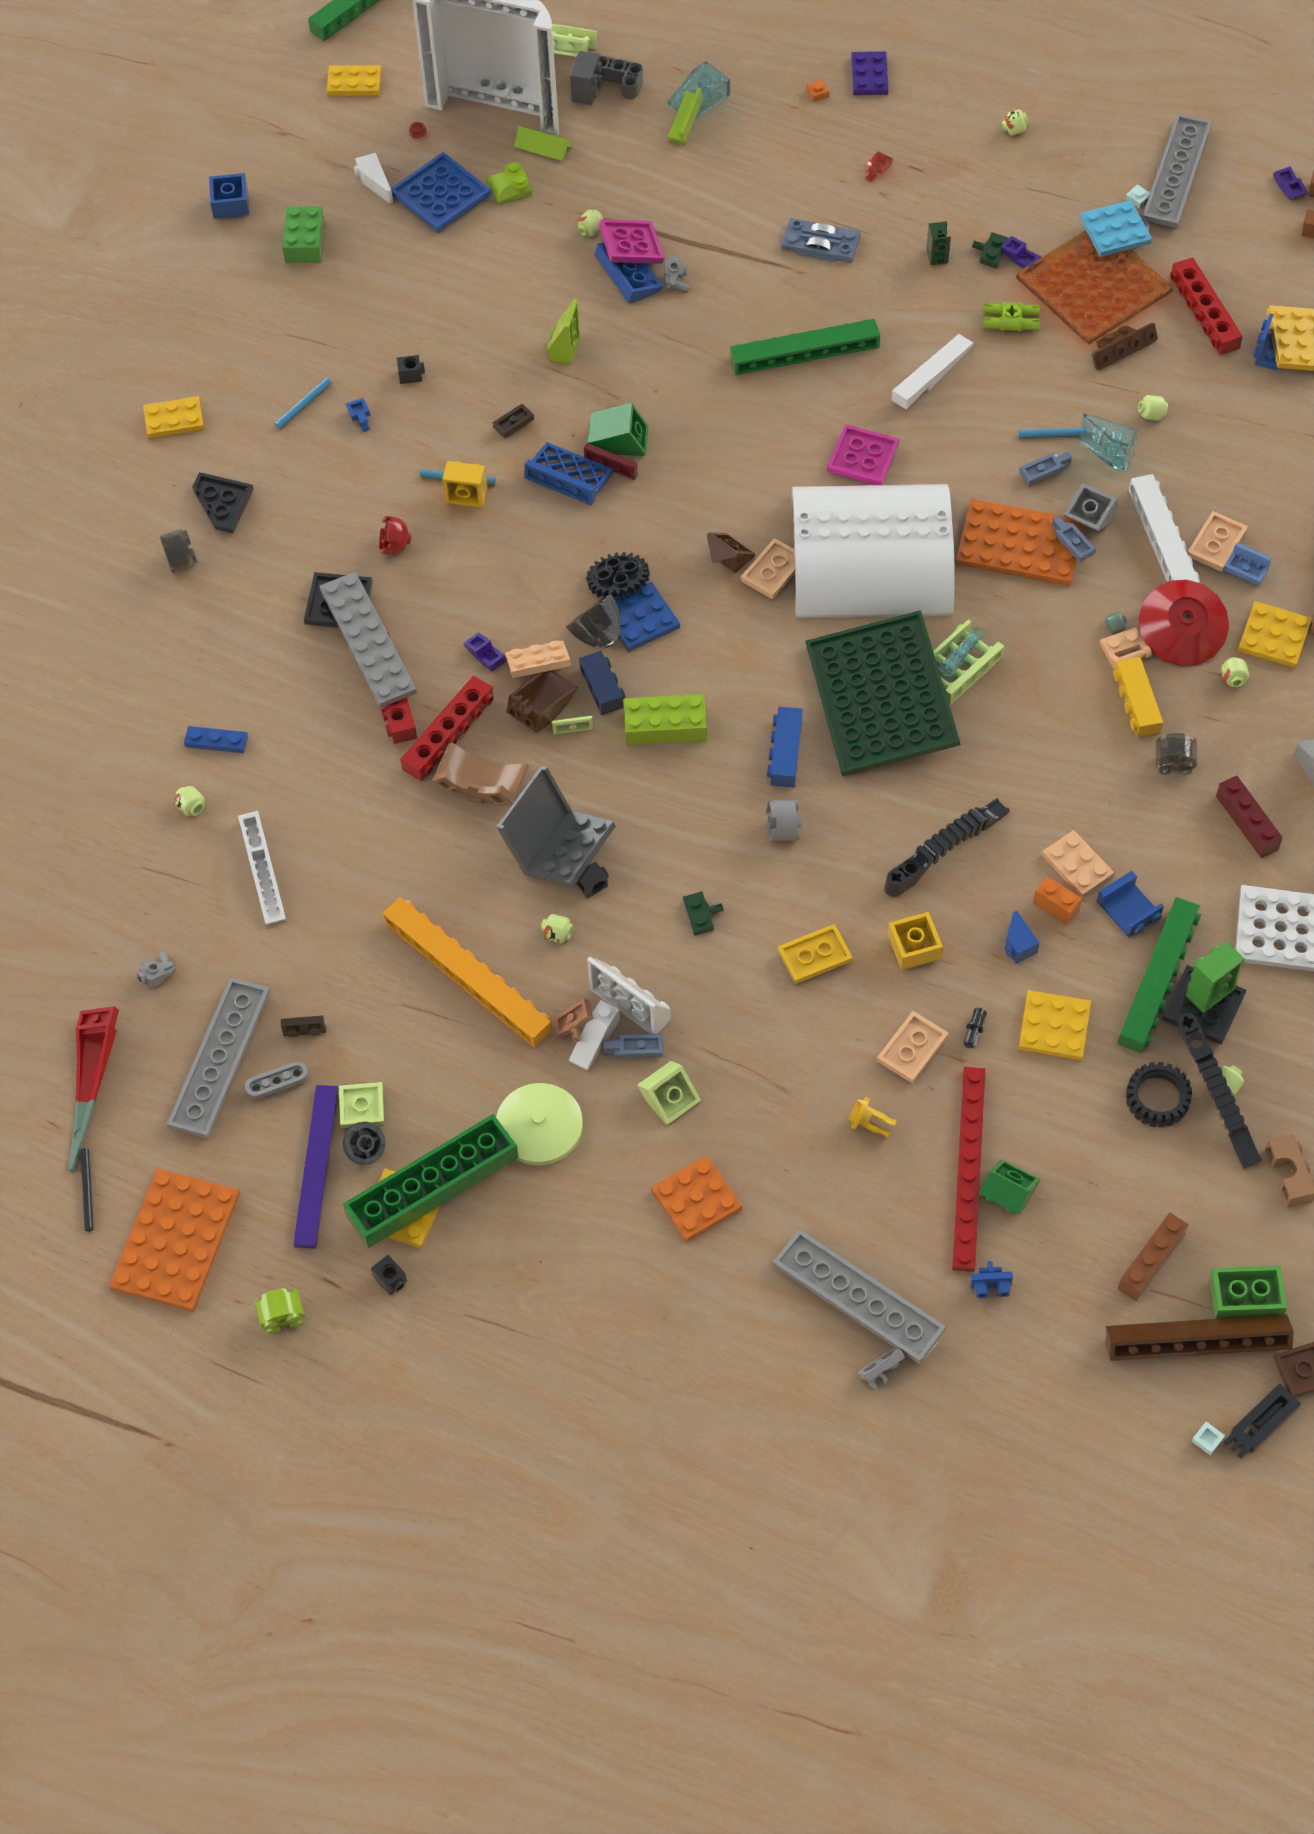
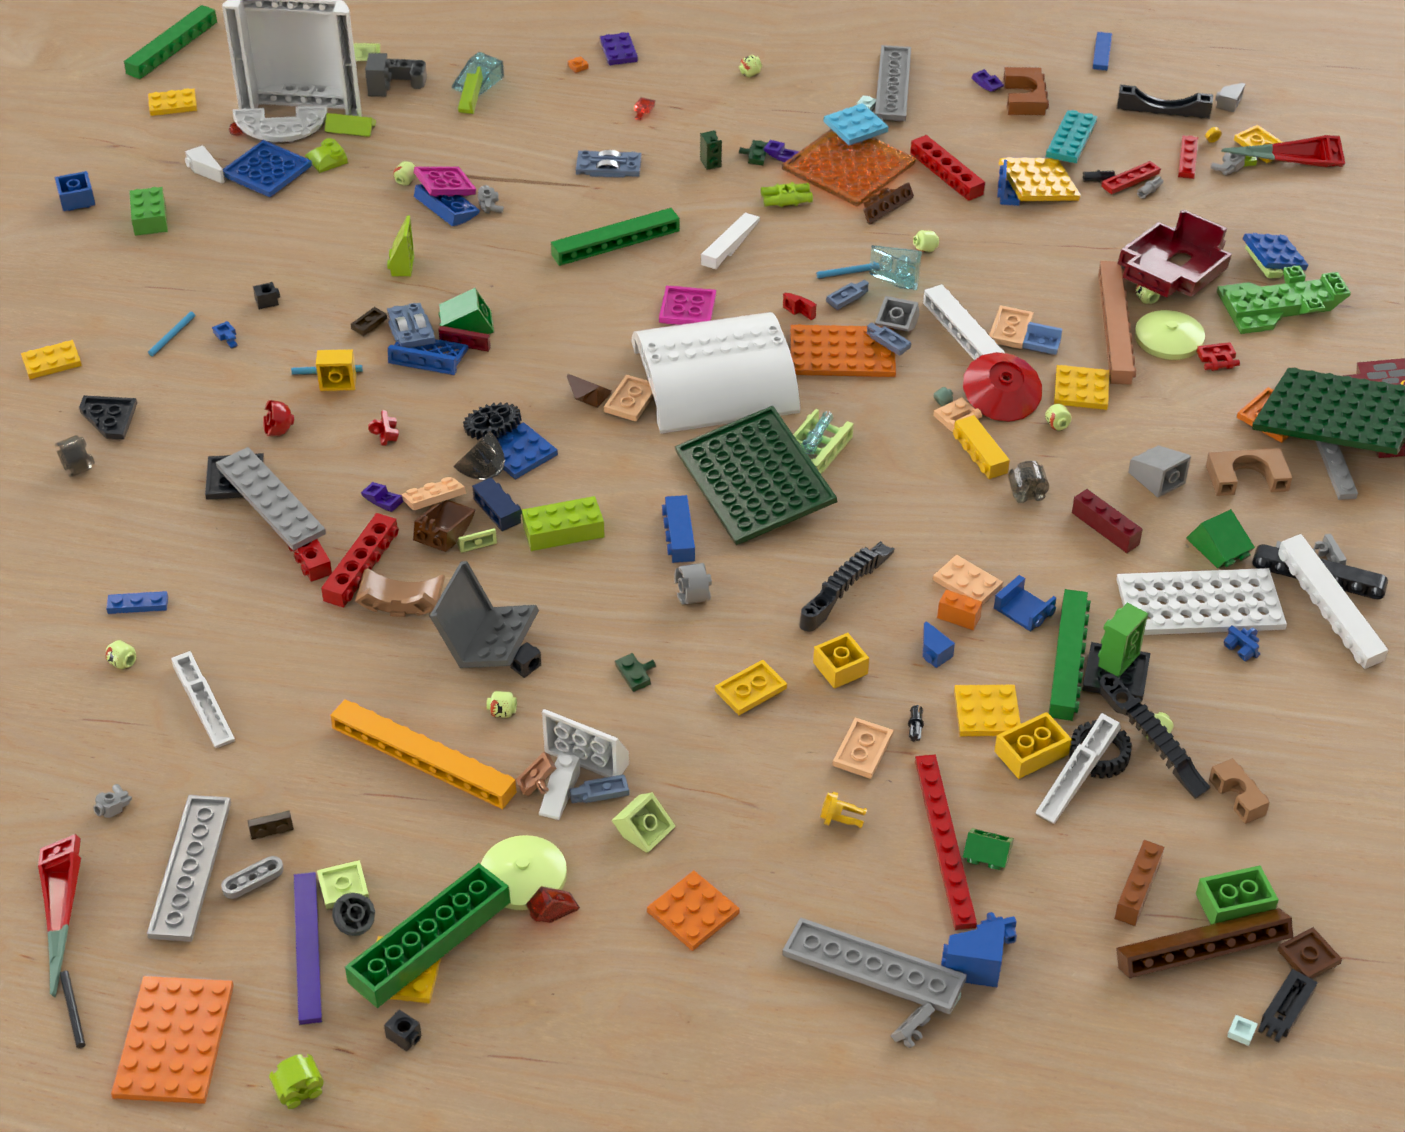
camera: 15 degrees left, 15 degrees down
(467, 138) = (280, 129): none -> white plate
(501, 565) = (384, 428): none -> red hips
(556, 434) = (410, 325): none -> sand blue piece
(558, 1167) = (551, 904): none -> clear red slope
(961, 1307) = (976, 954): none -> blue slope
(985, 472) = (799, 304): none -> red slope
(1088, 1078) = (1032, 745): none -> yellow brick
(1127, 1115) = (1078, 768): none -> white slope

